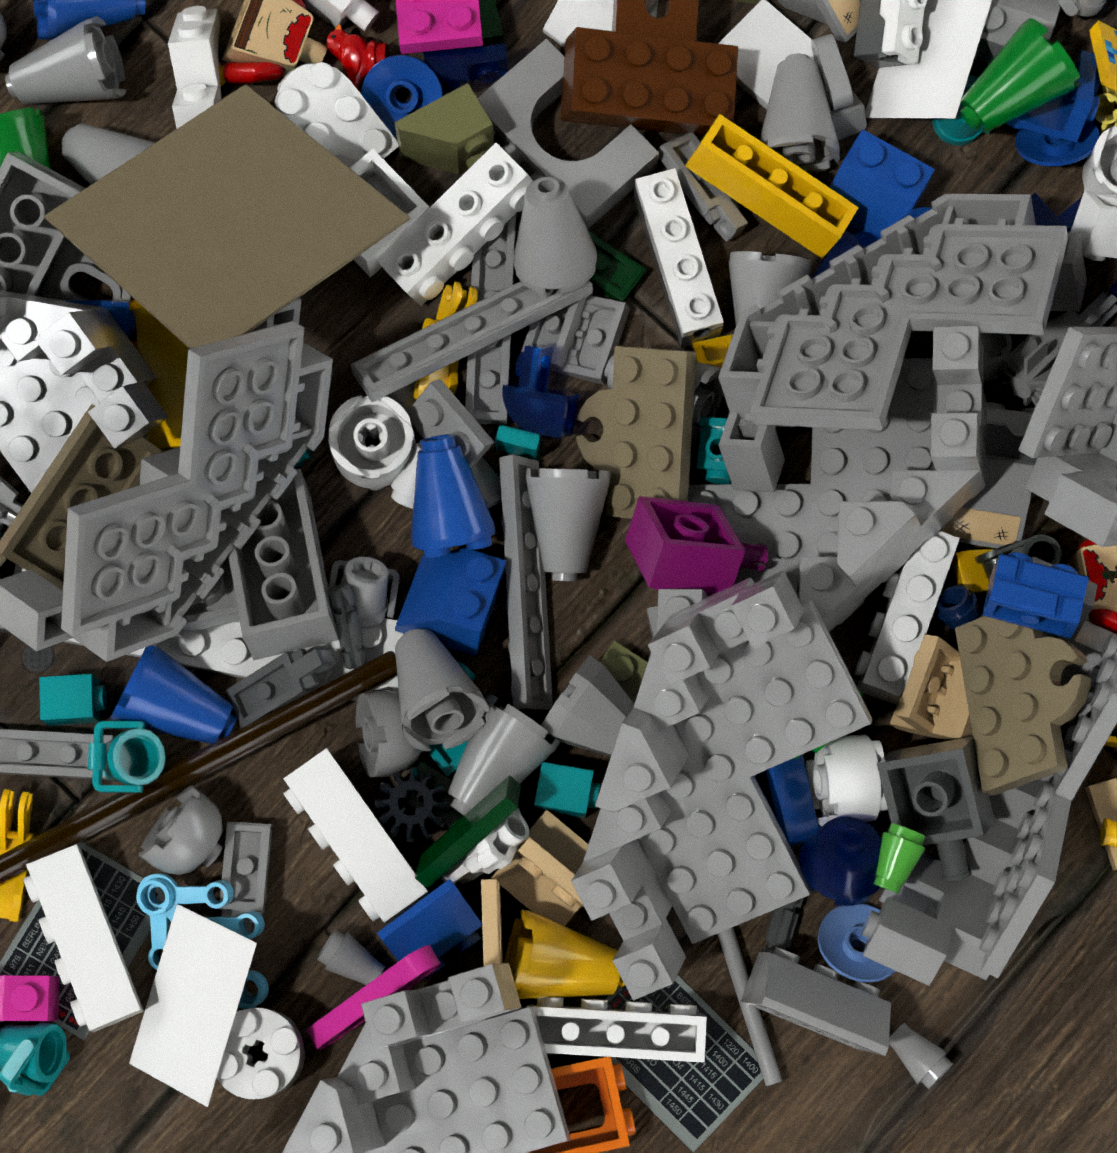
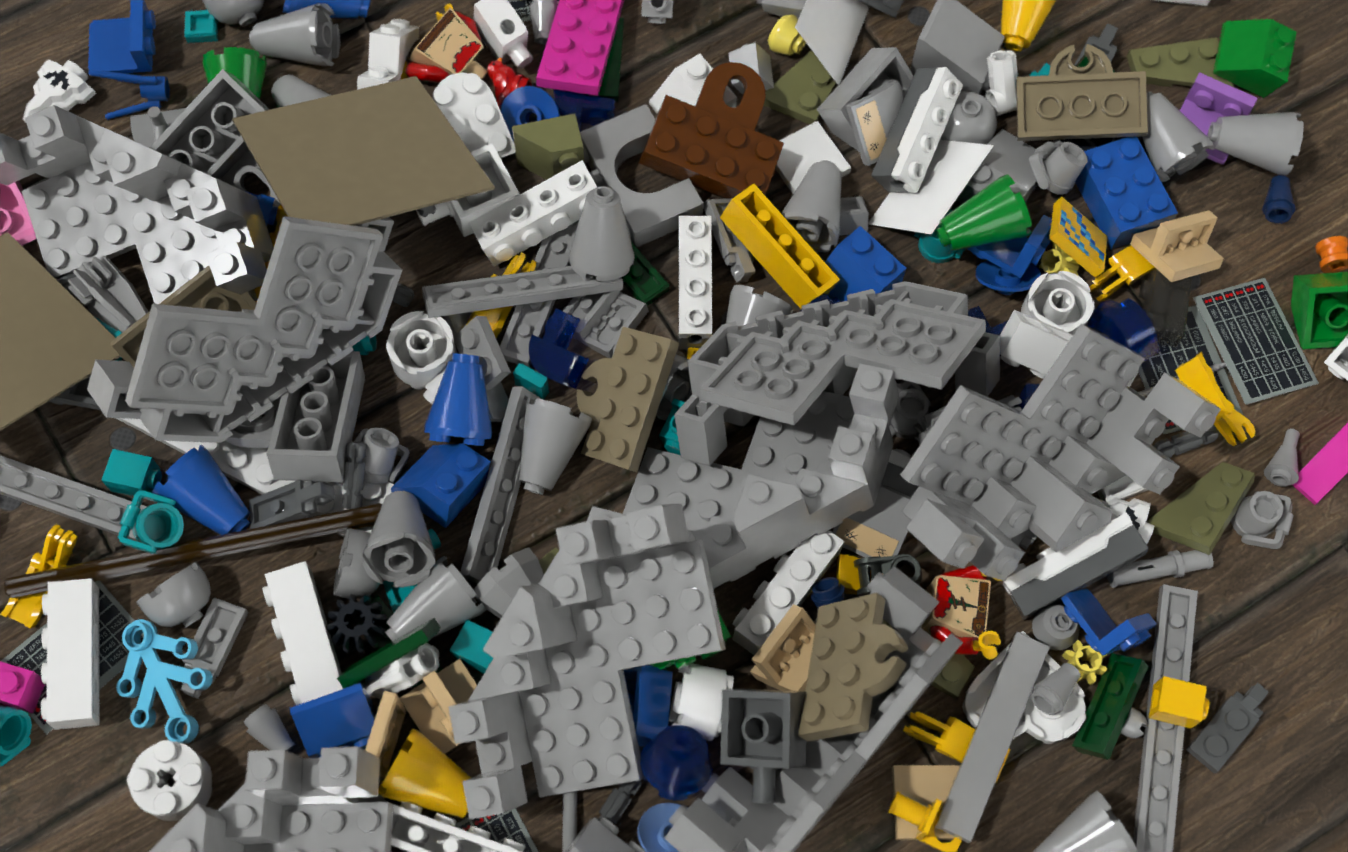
camera: 15 degrees right, 10 degrees down
(192, 1004) = (133, 726): white sticker -> none
(350, 1014) = (303, 744): dark pink beam -> none
(688, 546) = (626, 480): magenta brick -> none
(832, 72) = (850, 182): light grey beam -> none
(898, 856) = (716, 767): bright green cone -> none
(1035, 594) = (882, 589): blue brick -> none

